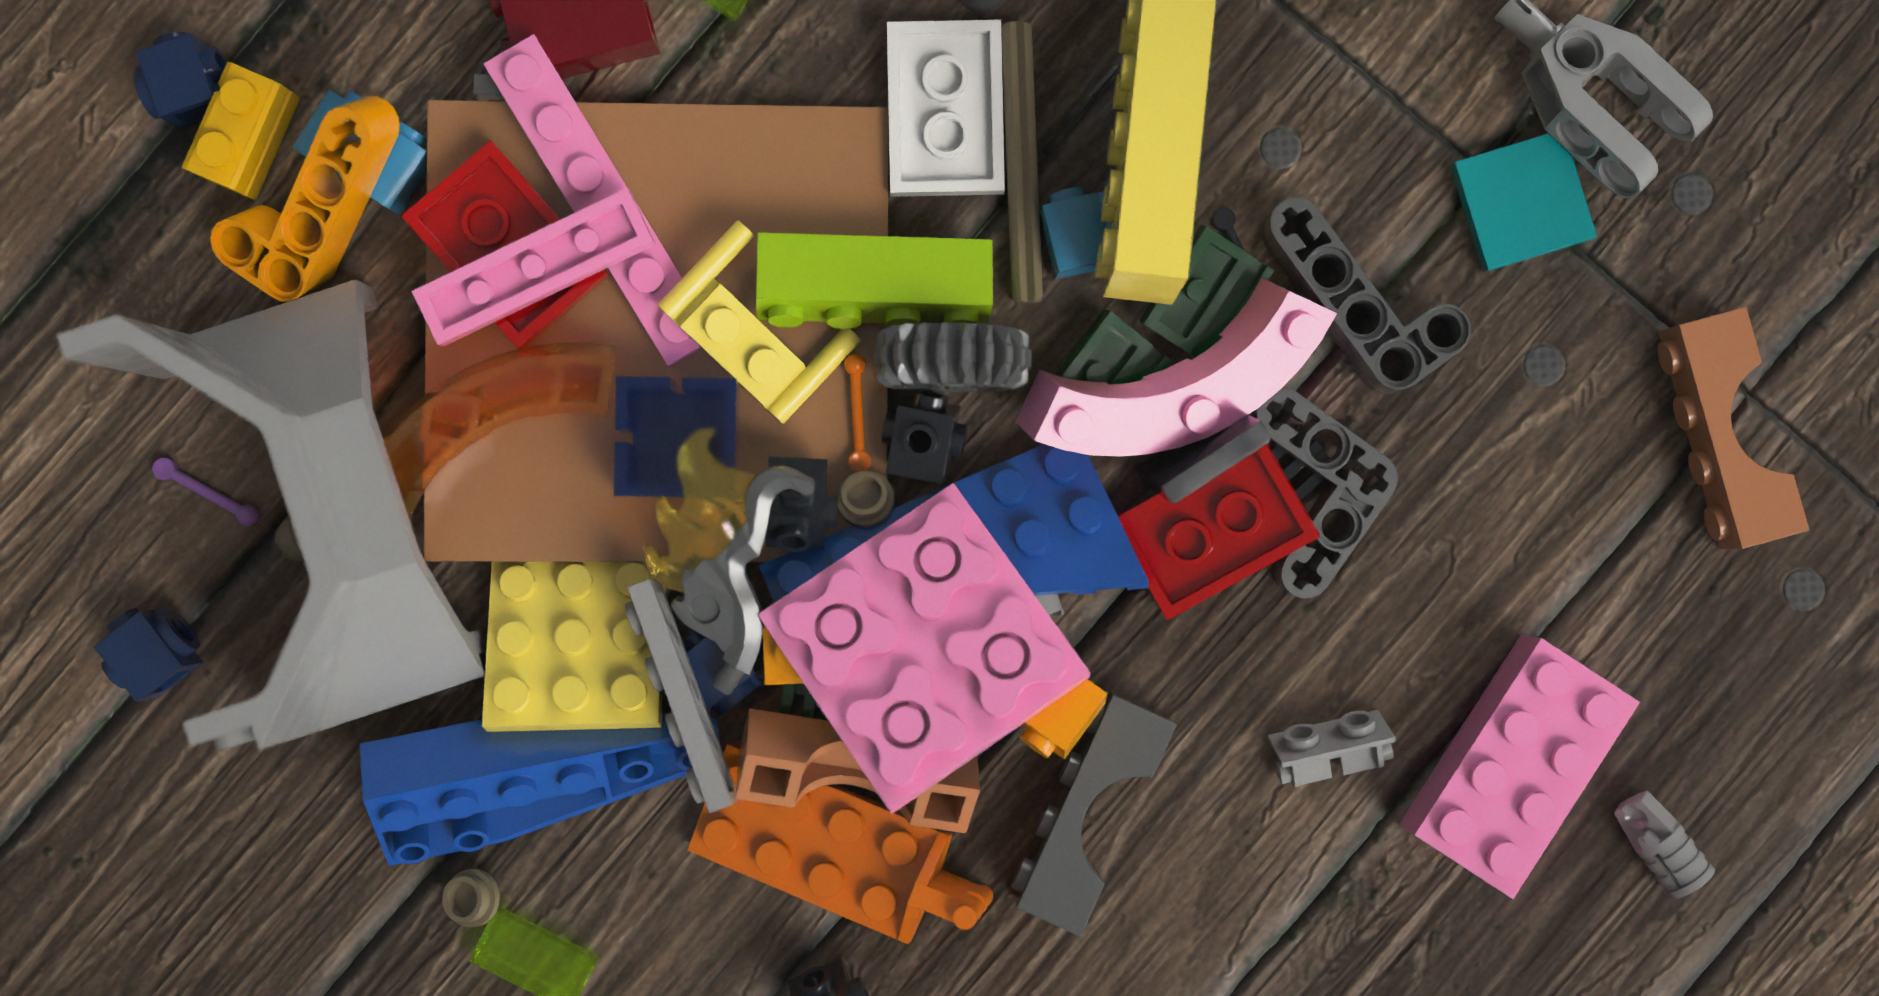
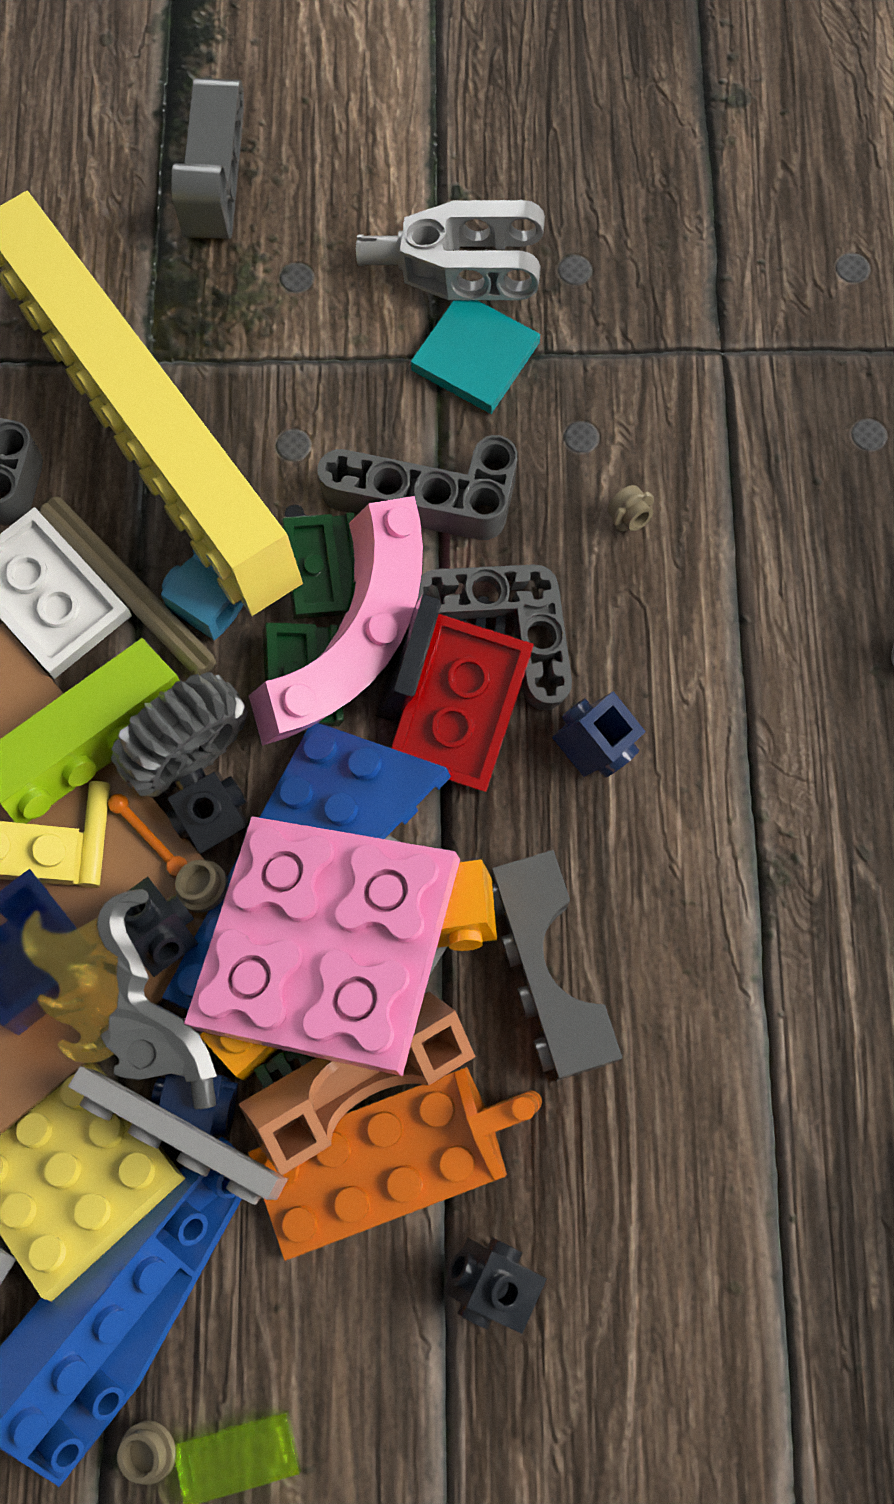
camera: 45 degrees left, 15 degrees down
(1304, 660) = (599, 735): none -> dark blue brick
(1357, 738) = (685, 763): light grey hinge -> none
(1519, 763) = (802, 685): bright pink brick -> none
(1521, 478) = (631, 508): none -> dark tan plate
(1706, 367) = (775, 404): nougat arch -> none

